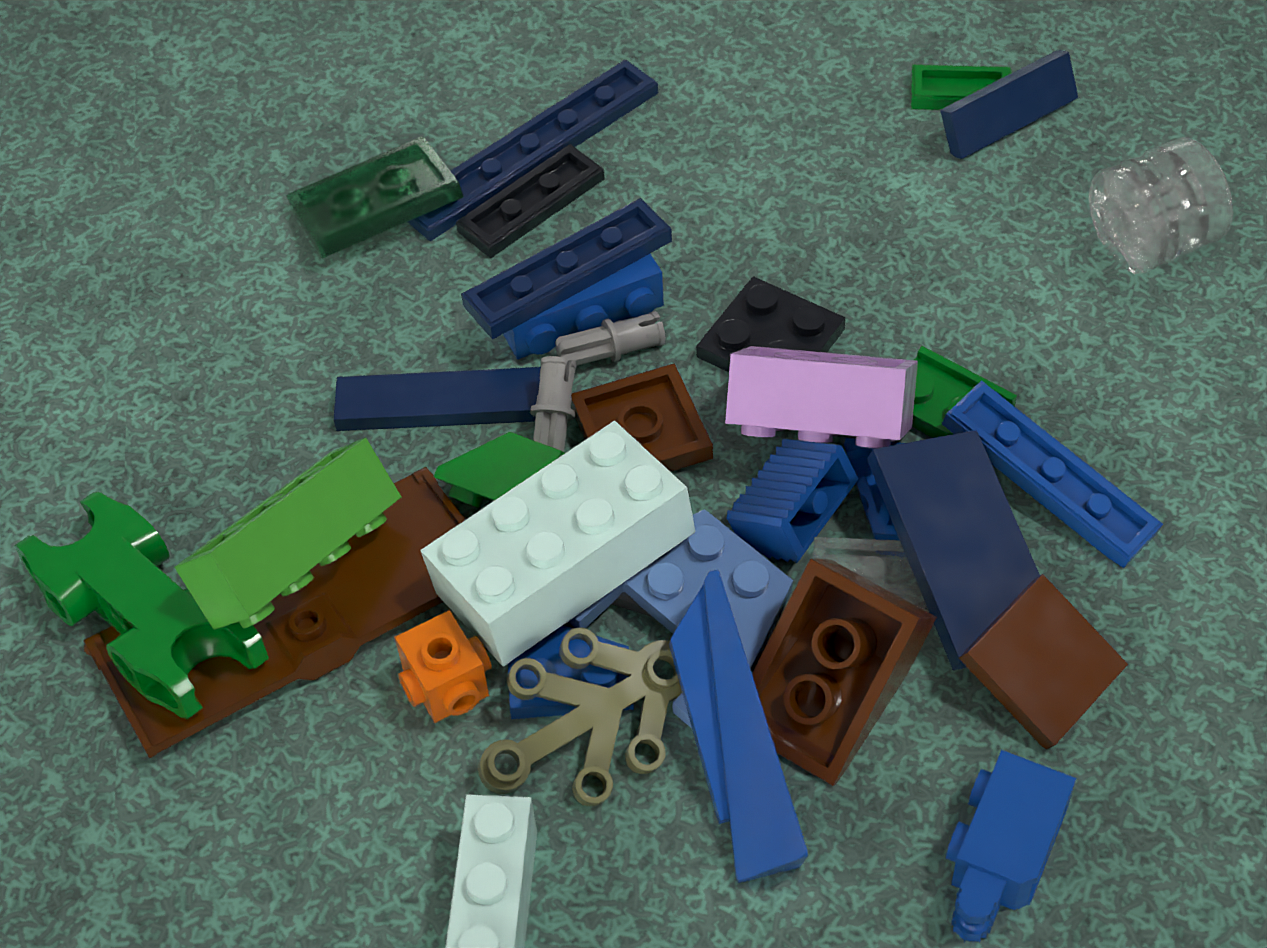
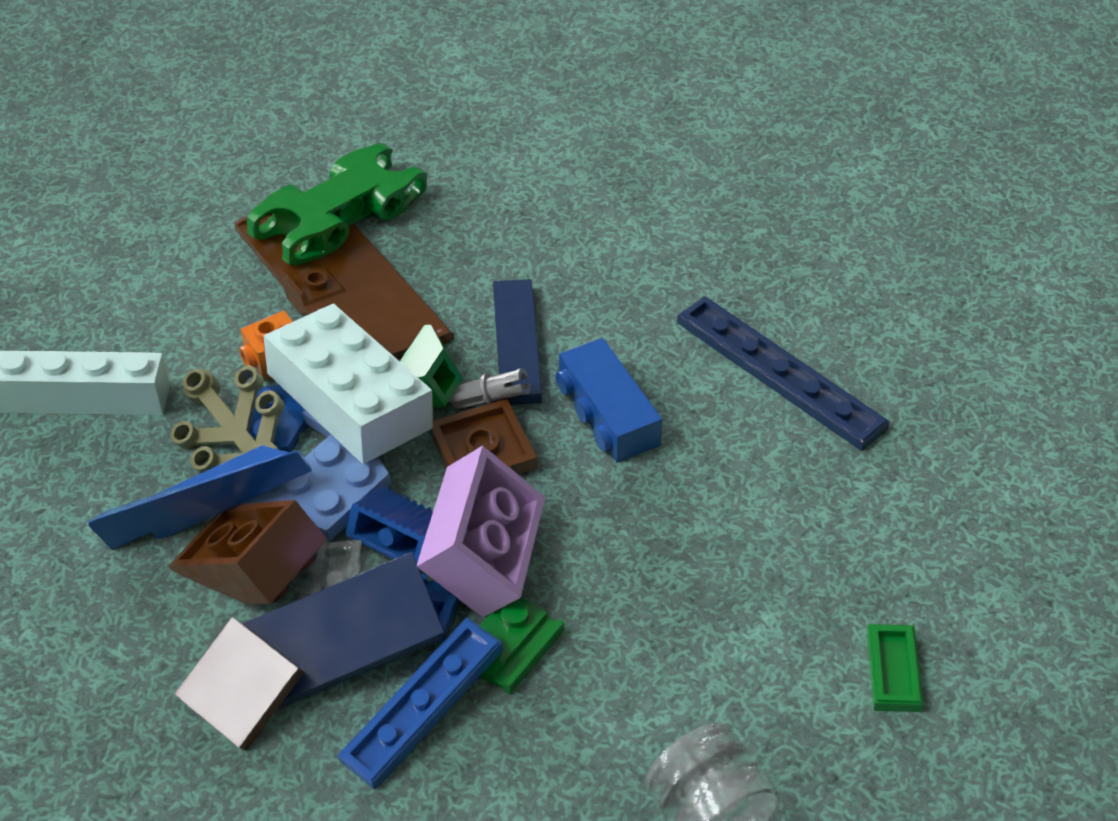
camera: 85 degrees right, 5 degrees down
(289, 535) = (357, 245): bright green brick -> none
(374, 196) = (708, 280): clear green tile -> none
(530, 201) = (721, 375): black tile -> none
(566, 268) = (614, 378): dark blue tile -> none
(612, 339) = (567, 424): light grey axle -> none
(769, 319) = (582, 526): black plate -> none
(1007, 841) = (97, 654): blue hinge -> none
(1009, 104) = (864, 696): dark blue tile -> none

